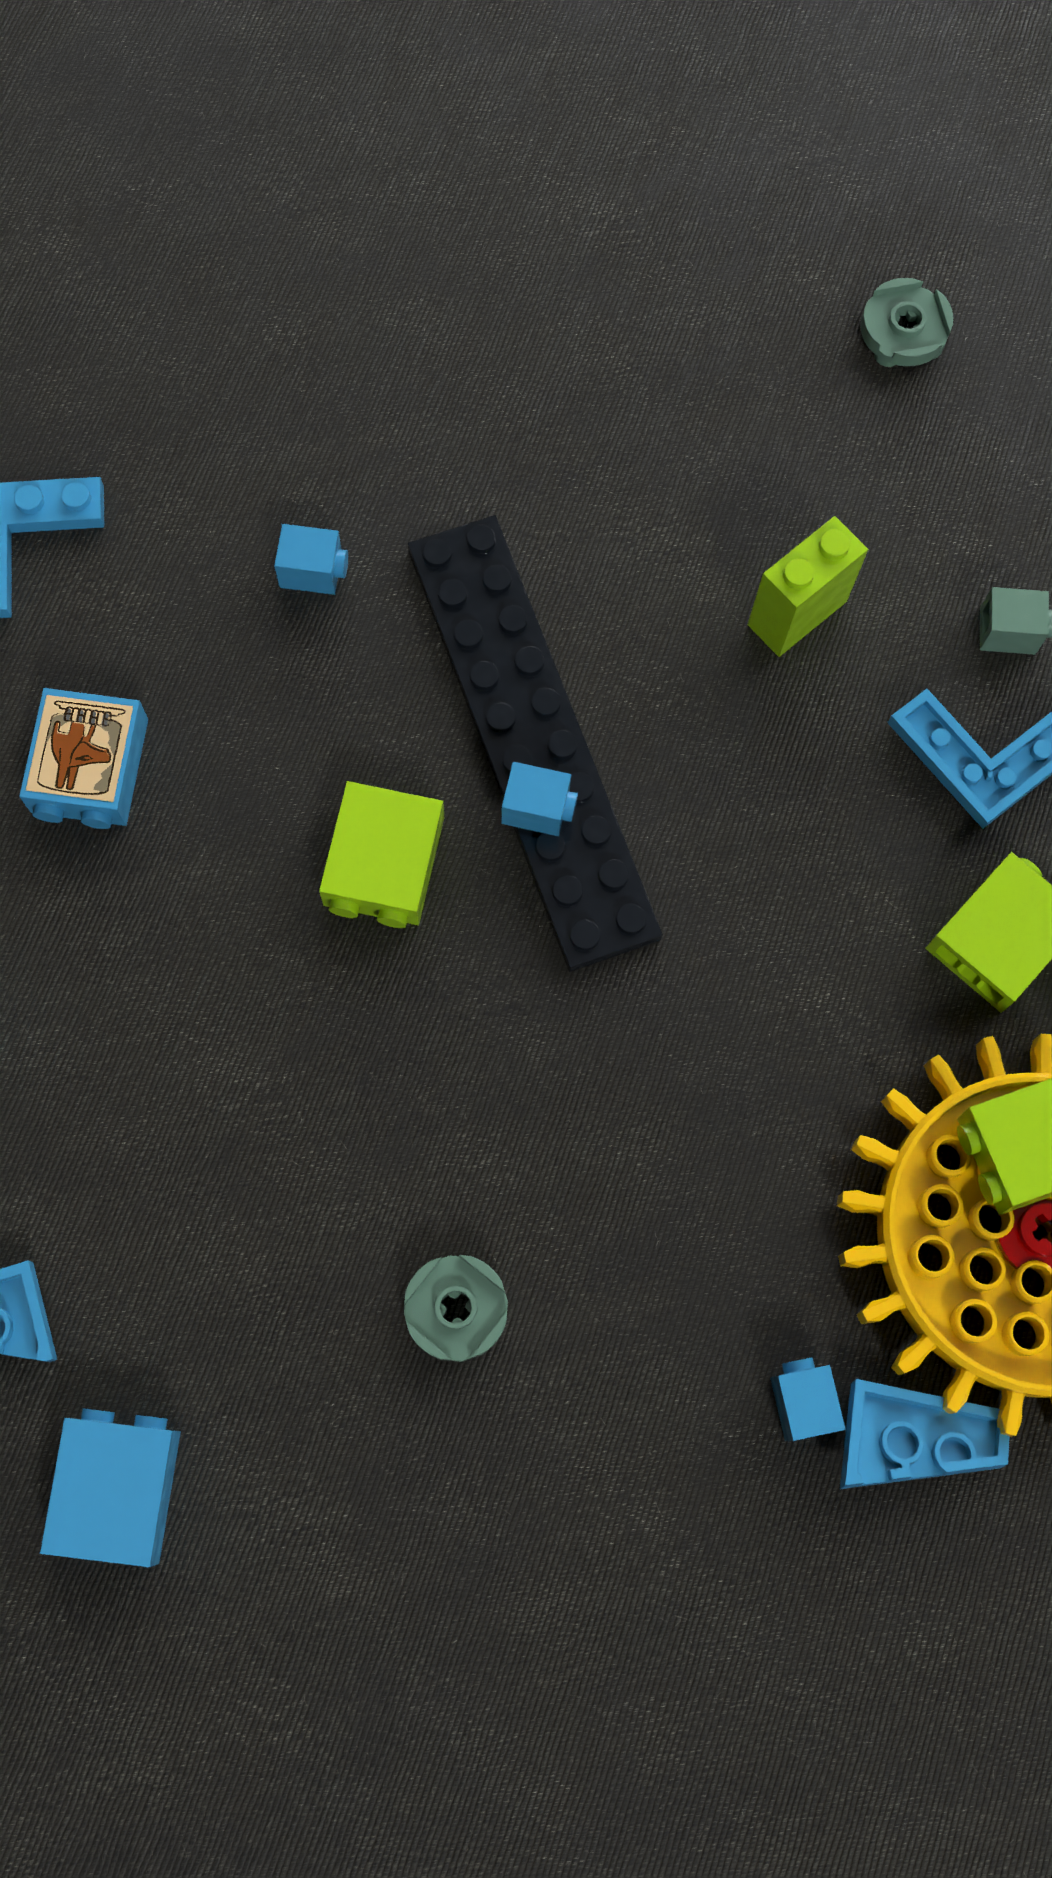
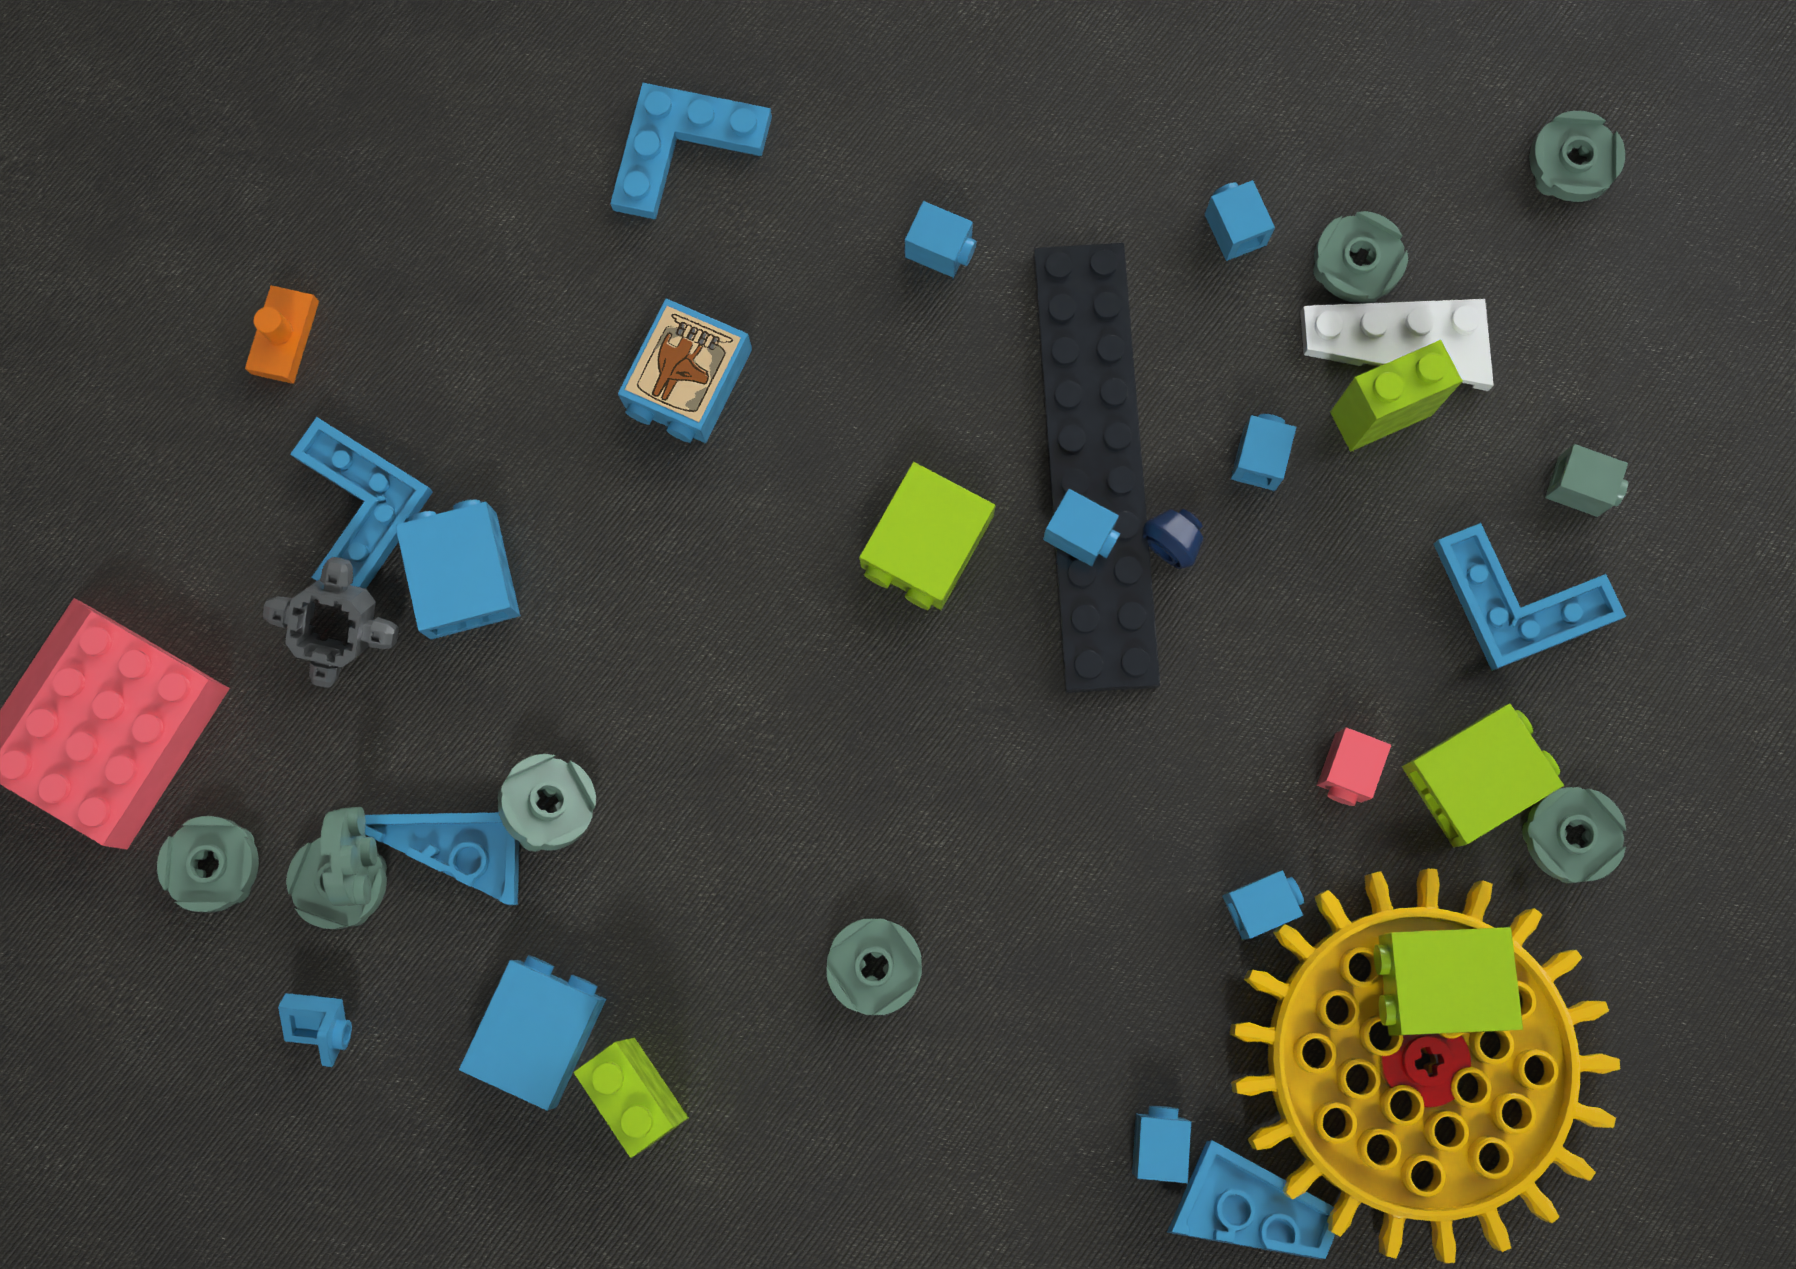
camera: 25 degrees right, 5 degrees up
(51, 1268) = (536, 827): none -> sand green plate
(236, 1521) = (630, 1095): none -> lime brick
(602, 463) = (1239, 219): none -> dark azure brick
(633, 785) = (1175, 537): none -> dark blue cone
(695, 678) = (1263, 451): none -> dark azure brick
(728, 493) = (1354, 282): none -> sand green plate
(765, 535) = (1390, 330): none -> white wing
(833, 1122) = (1264, 904): none -> dark azure brick
(879, 960) = (1353, 767): none -> coral brick

